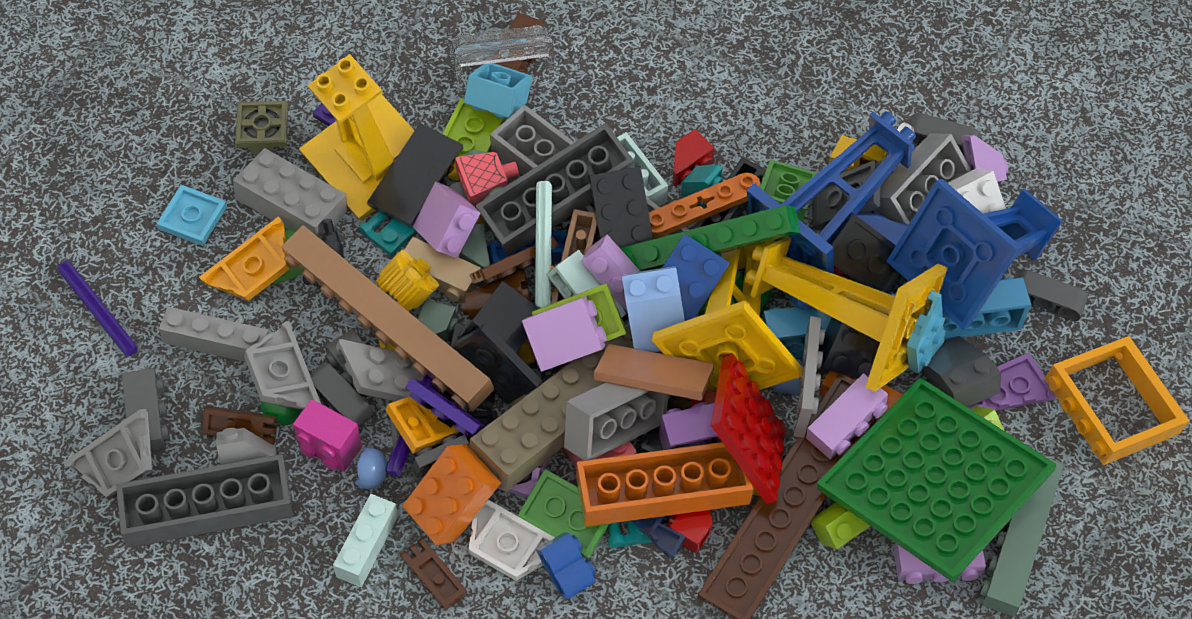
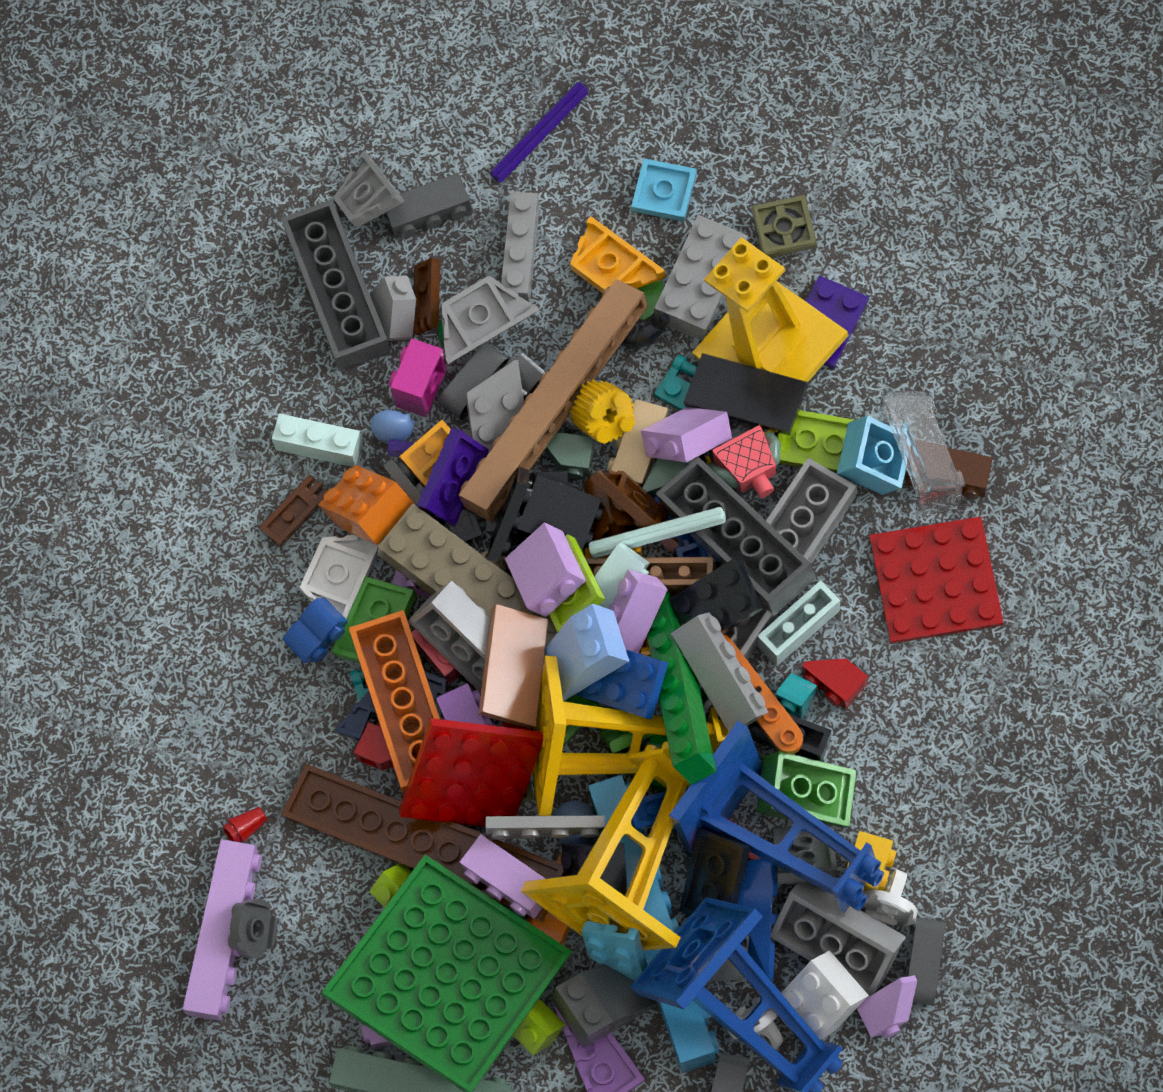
camera: 90 degrees right, 10 degrees up
(611, 78) = (936, 580): none -> red plate
(686, 214) = (719, 671): none -> light grey brick

